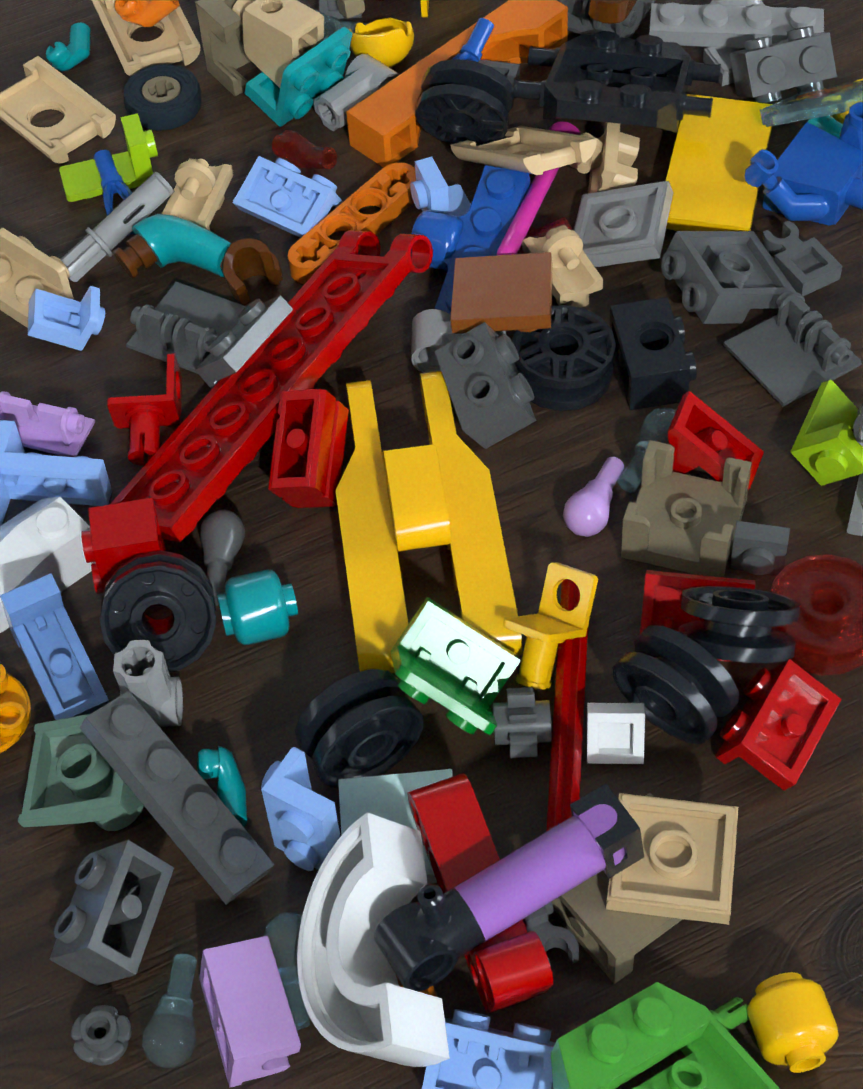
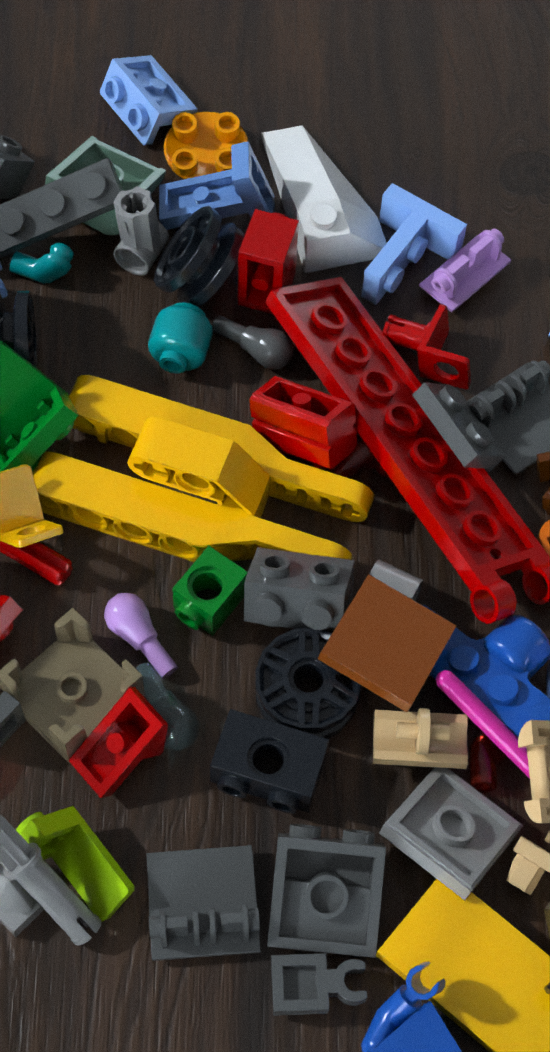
camera: 110 degrees right, 10 degrees up
(524, 459) = (209, 572): none -> green brick

